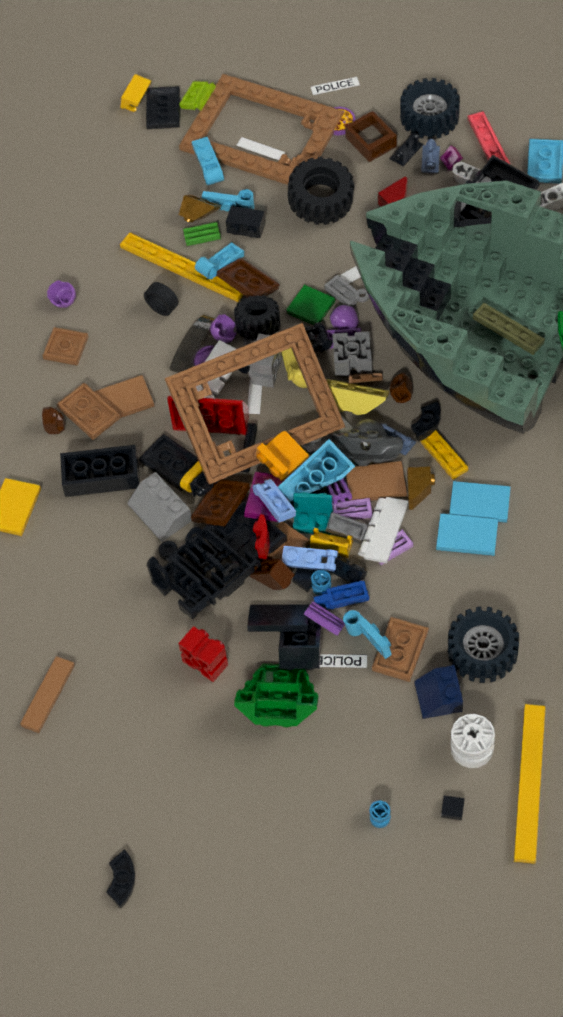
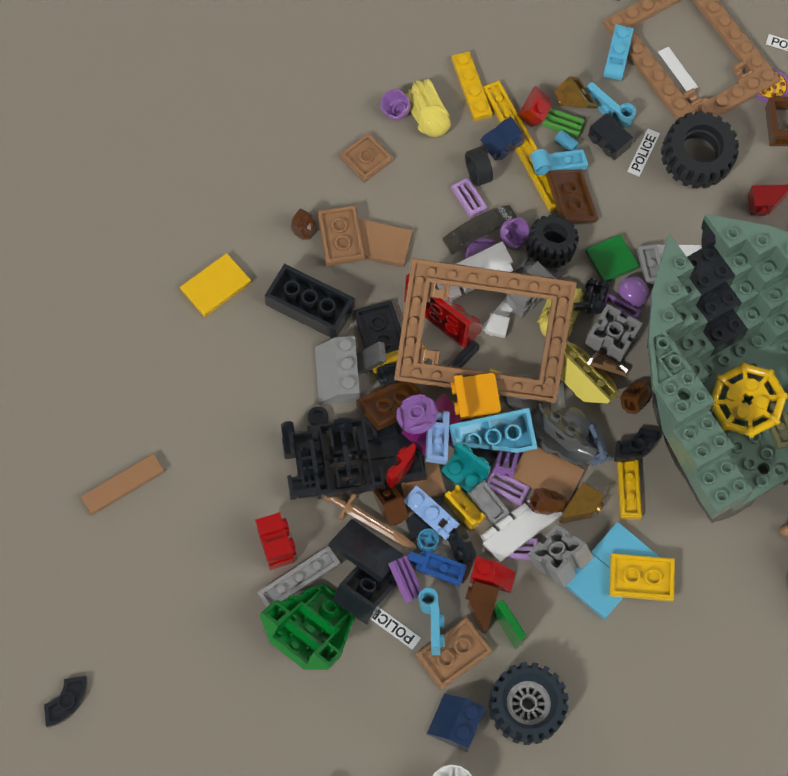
camera: 25 degrees right, 10 degrees up
(90, 282) = (428, 109): none -> light yellow hair
(110, 249) = (471, 86): none -> yellow plate
(165, 268) = (503, 139): none -> dark blue brick
(168, 330) = (476, 210): none -> lavender tile
(173, 235) = (535, 107): none -> red slope
(180, 478) = (371, 357): none -> flat silver tile
(213, 244) = (563, 137): none -> medium azure piece
(241, 670) = (300, 577): none -> light grey plate
(247, 493) = (417, 414): none -> medium lavender tile
(253, 598) = (369, 520): none -> medium nougat sword
(259, 402) = (497, 325): none -> white tile
(278, 220) = (643, 152): none -> white sticker
(386, 575) = (492, 574): none -> red slope
(390, 498) = (547, 501): none -> reddish brown rock
(395, 600) = (482, 603): none -> reddish brown slope
(427, 598) = (509, 624): none -> green tile
(429, 527) = (560, 555): none -> light grey brick
(494, 323) = (749, 388): none -> yellow plate
(500, 506) = (641, 577): none -> yellow tile

